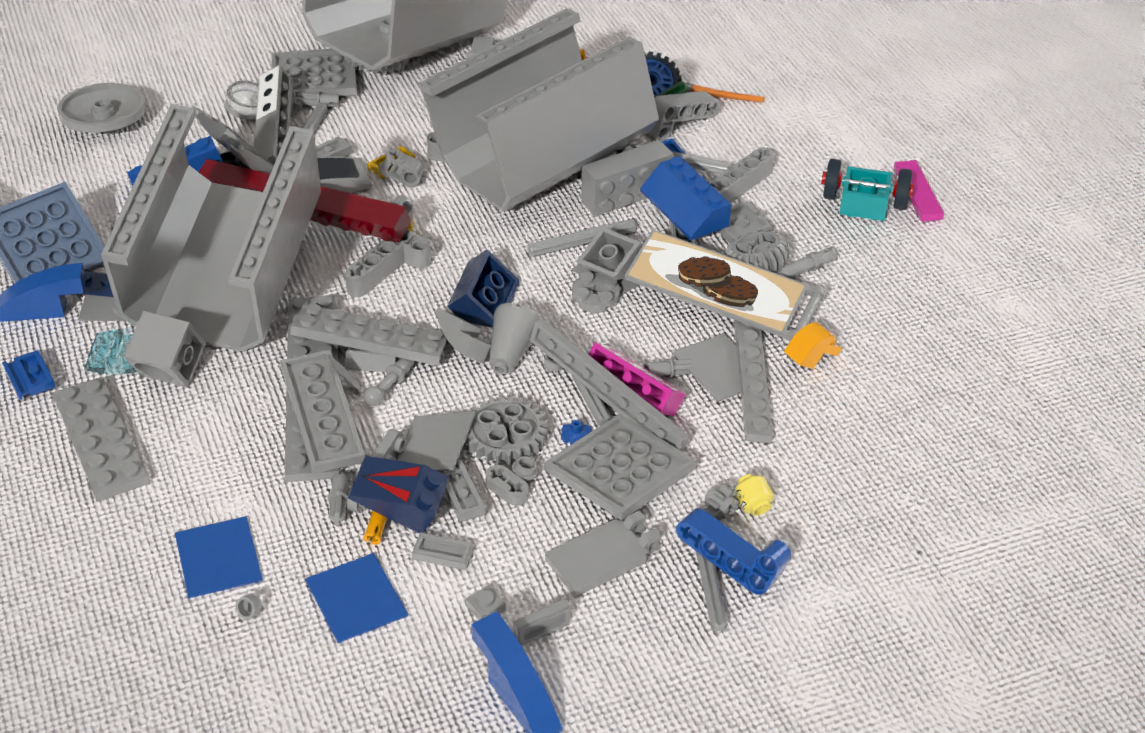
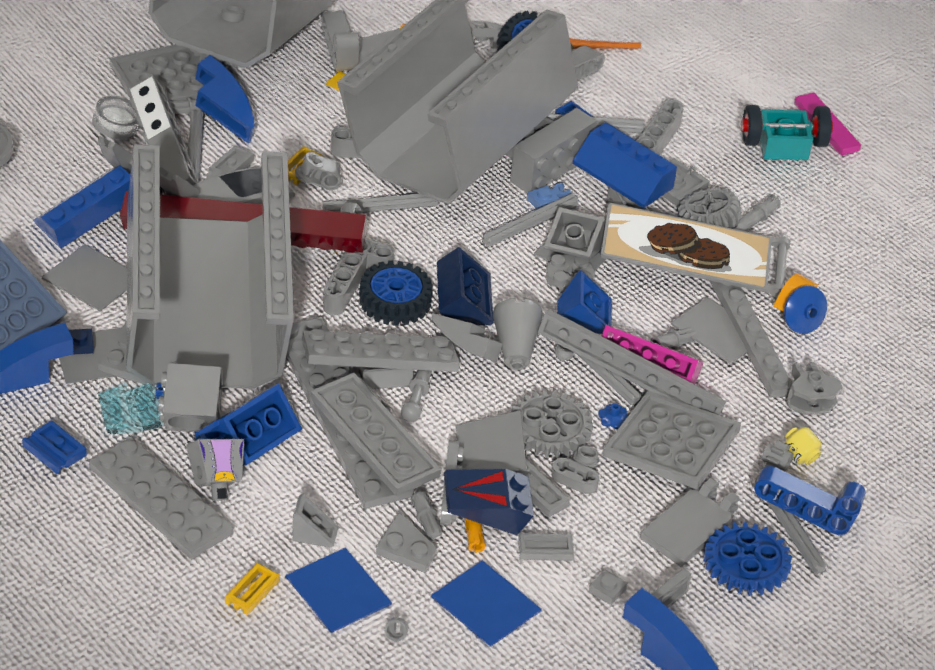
camera: 20 degrees left, 0 degrees up
(136, 543) = (260, 586): none -> yellow tile
(156, 414) = (216, 464): none -> light grey torso
(206, 389) = (260, 422): none -> blue slope
(220, 487) = (312, 524): none -> light grey slope
(305, 524) = (407, 545): none -> light grey wing
(345, 95) = (224, 98): none -> blue slope
(417, 284) = (395, 293): none -> black wheel
(452, 204) = (384, 203): none -> light grey axle
(593, 321) = (586, 304): none -> blue slope
(607, 216) = (545, 195): none -> medium blue plate
(643, 601) = (747, 558): none -> blue gear
(788, 439) = (812, 388): none -> light grey hinge
(805, 353) = (798, 308): none -> blue dish

